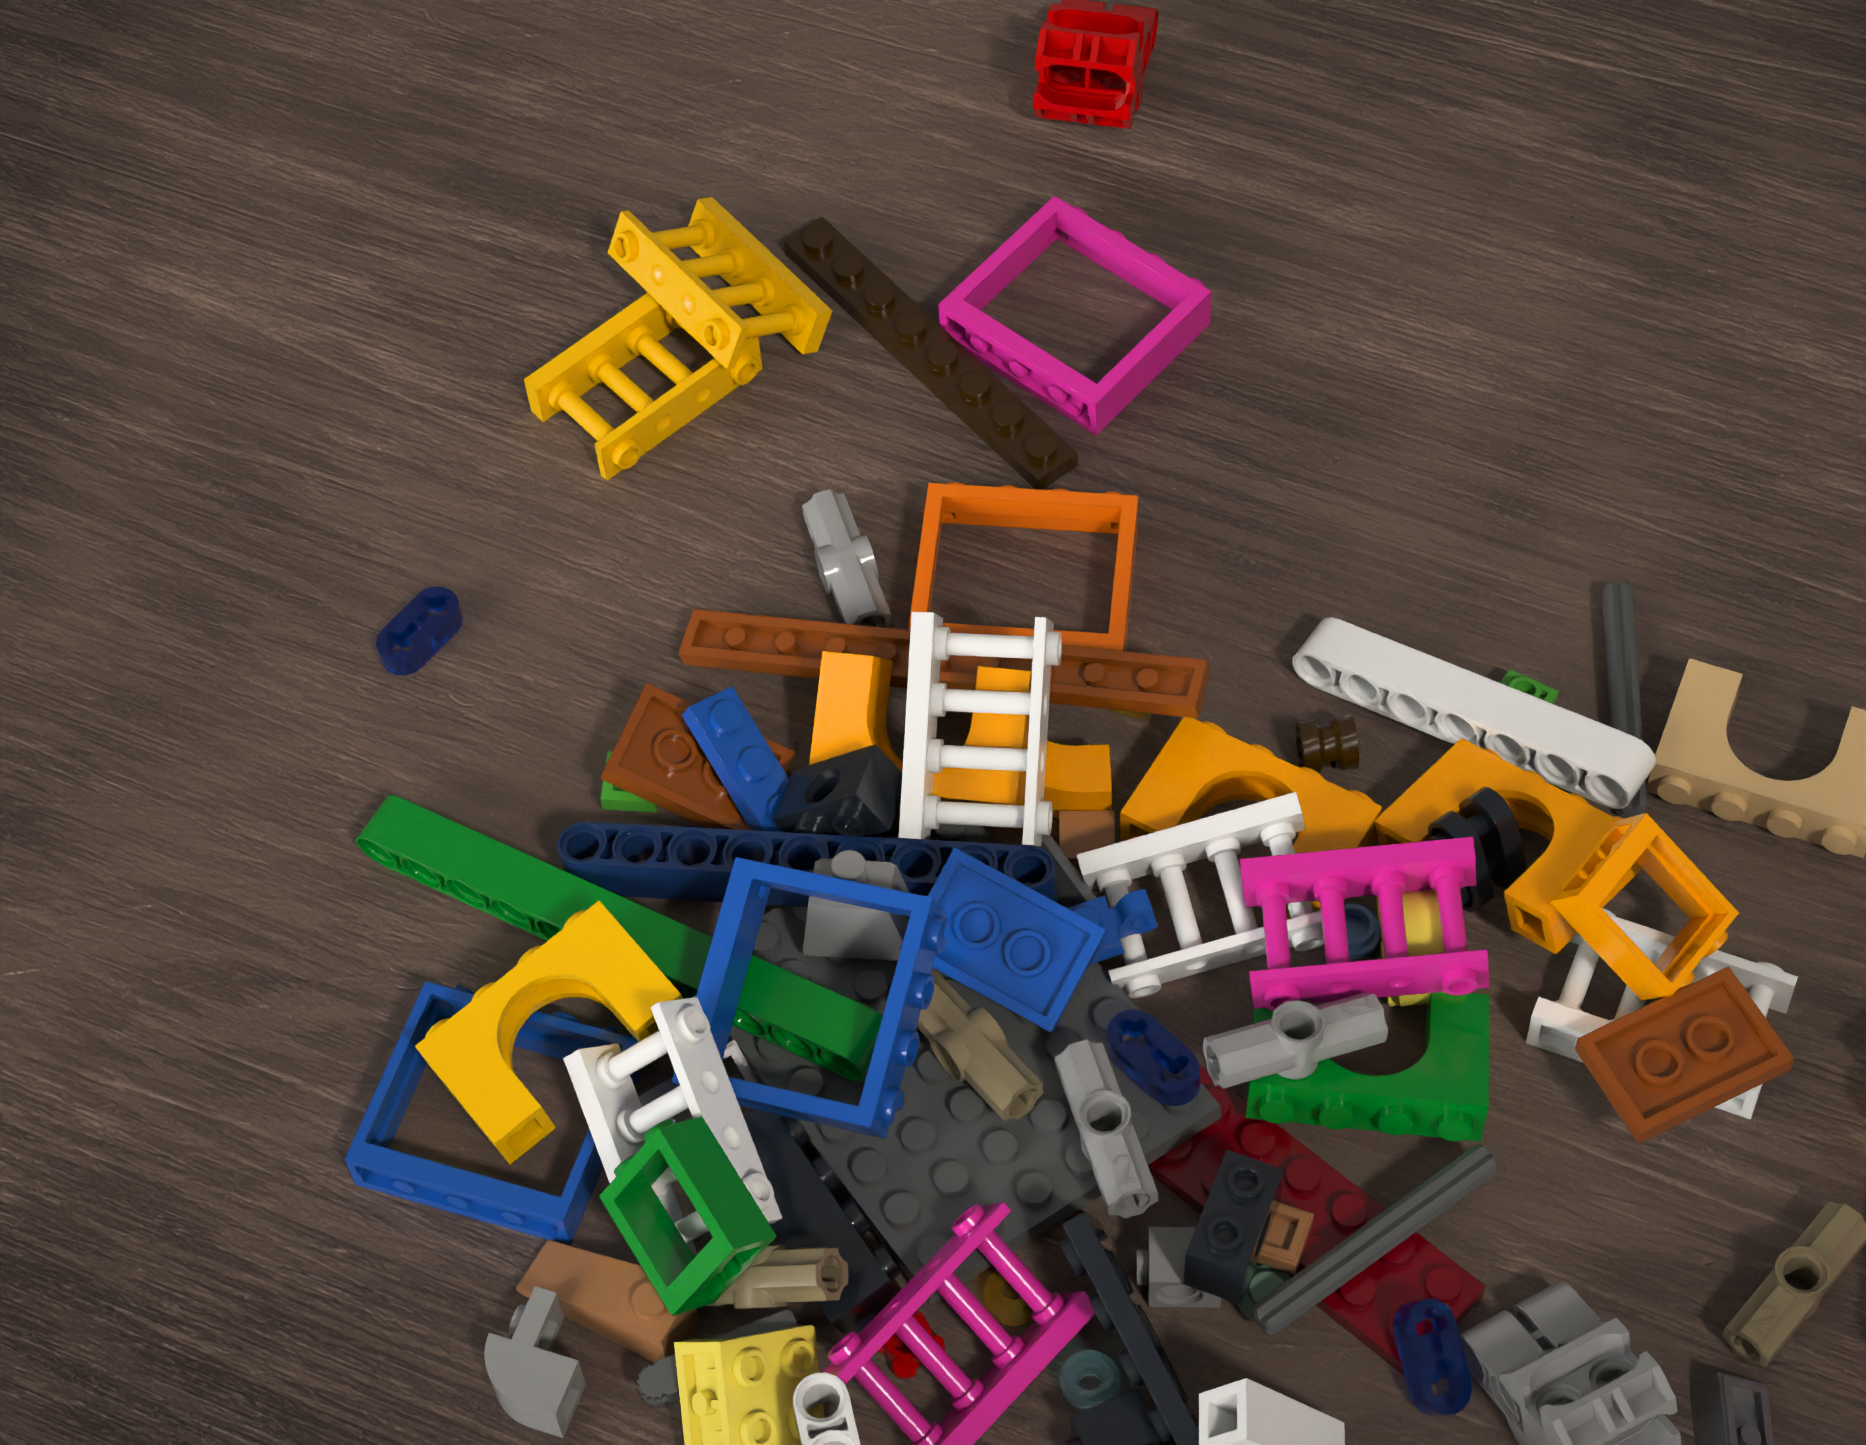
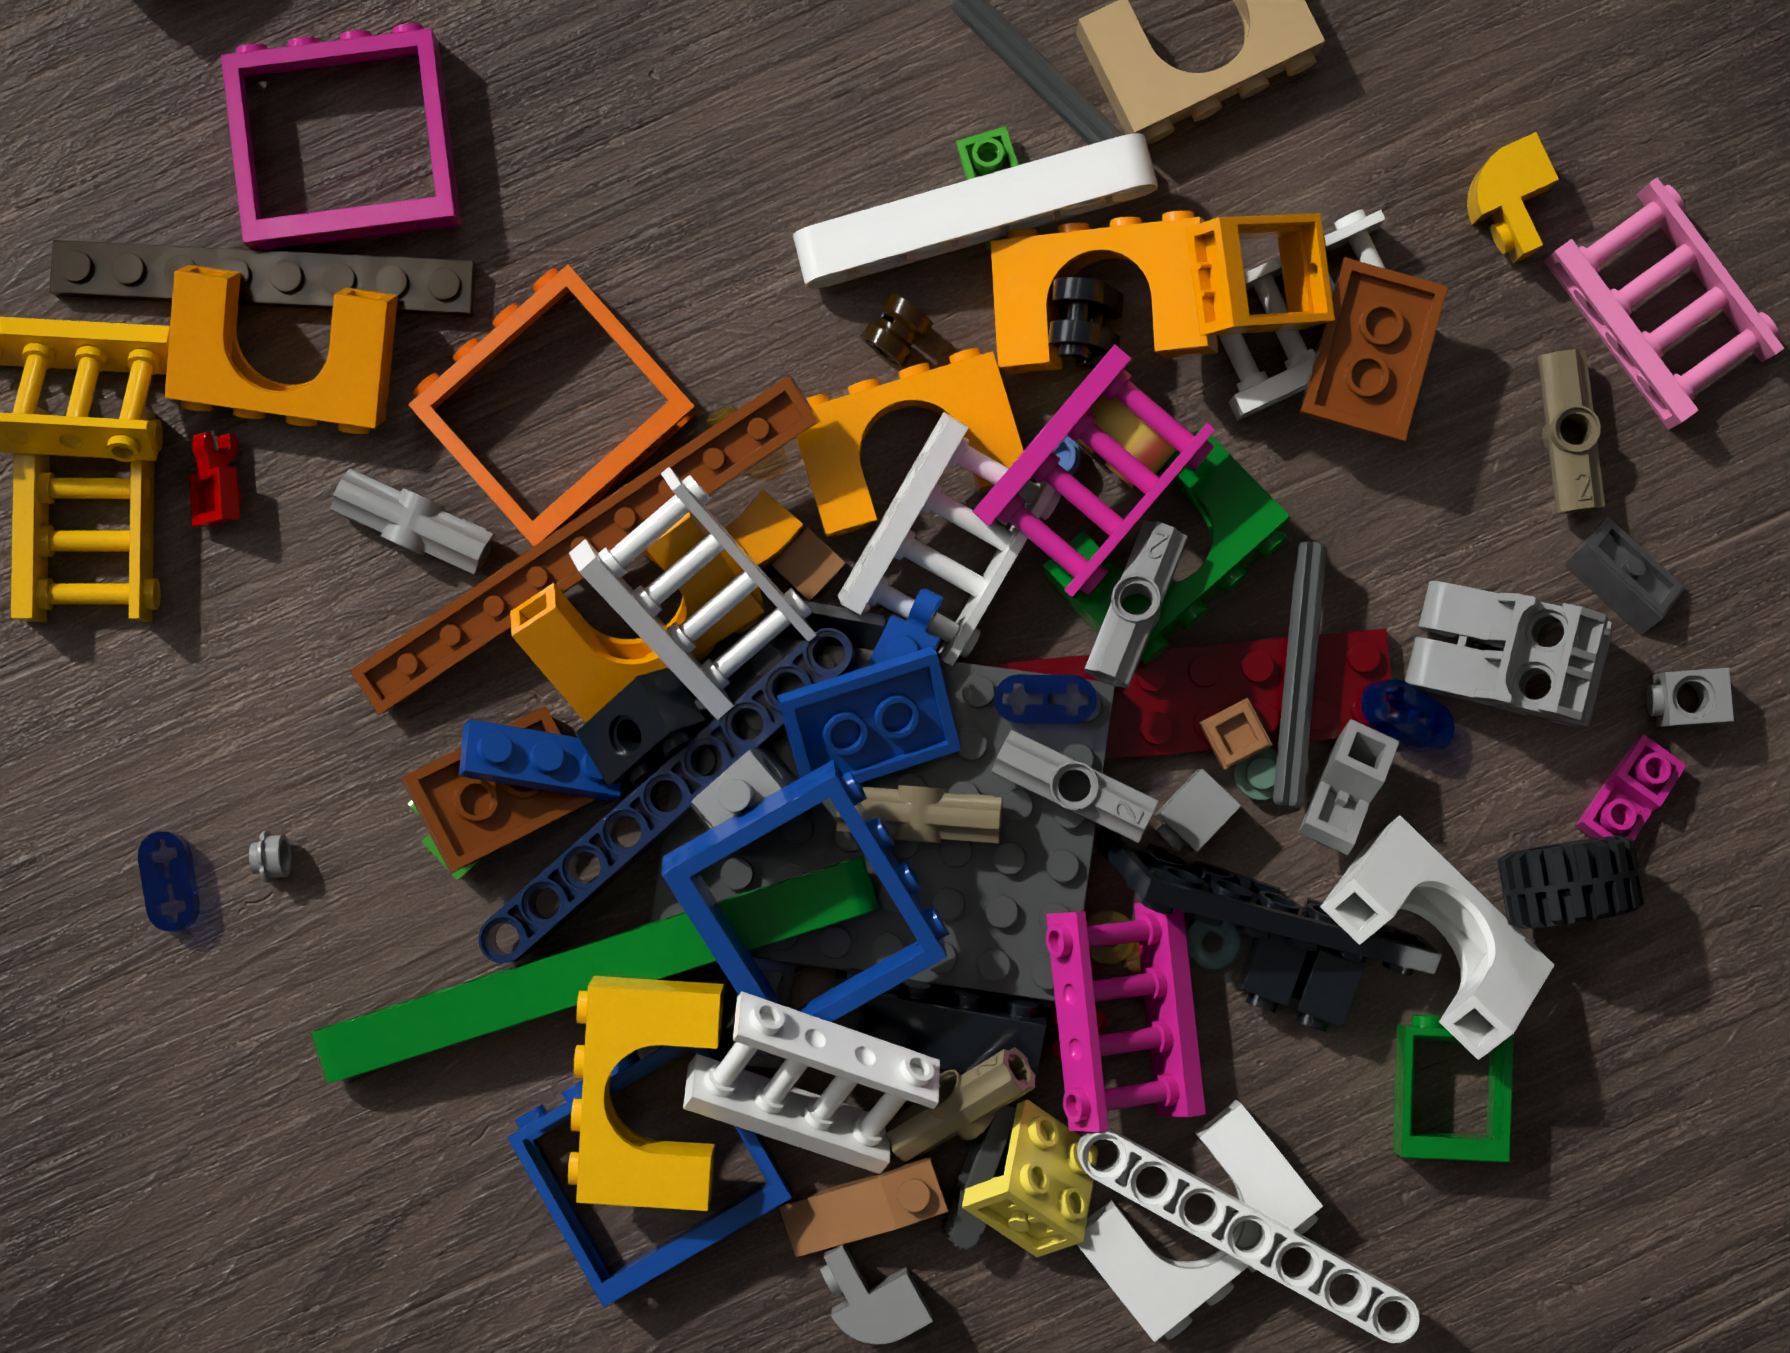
camera: 50 degrees left, 30 degrees up
(501, 675) = (270, 856): none -> light grey plate
(718, 1196) = (892, 1132): green window -> none
(742, 434) = (214, 486): none -> red plate
(905, 443) = (211, 370): none -> light orange arch
(1233, 1227) = (1224, 770): black brick -> none
(1331, 1360) = (1347, 786): none -> light grey brick

